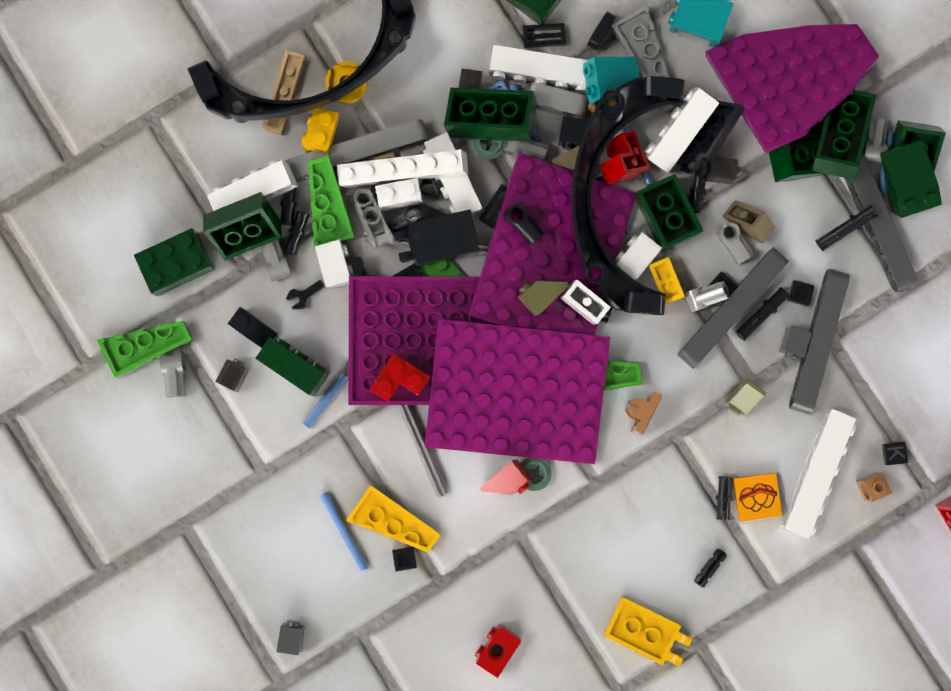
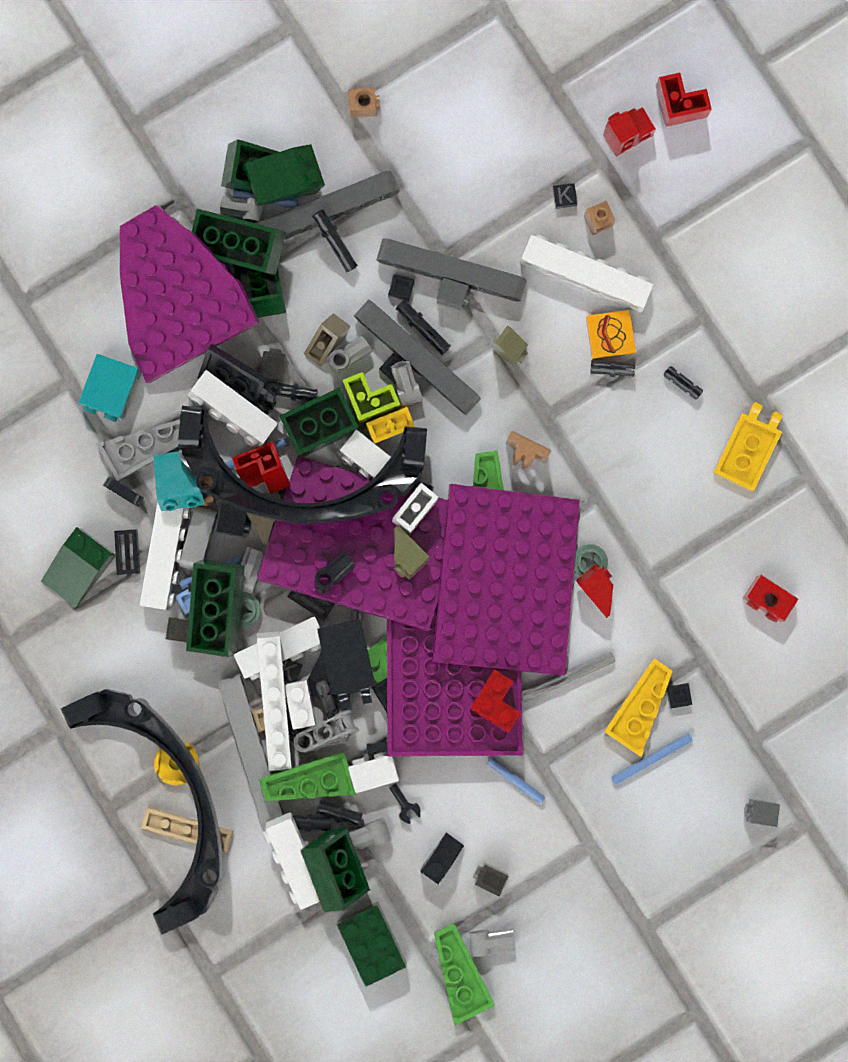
camera: 90 degrees left, 0 degrees up
(292, 365) = (482, 814): dark green brick -> none
(320, 131) = (232, 788): yellow bracket -> none
(687, 261) = (367, 403): none -> lime brick

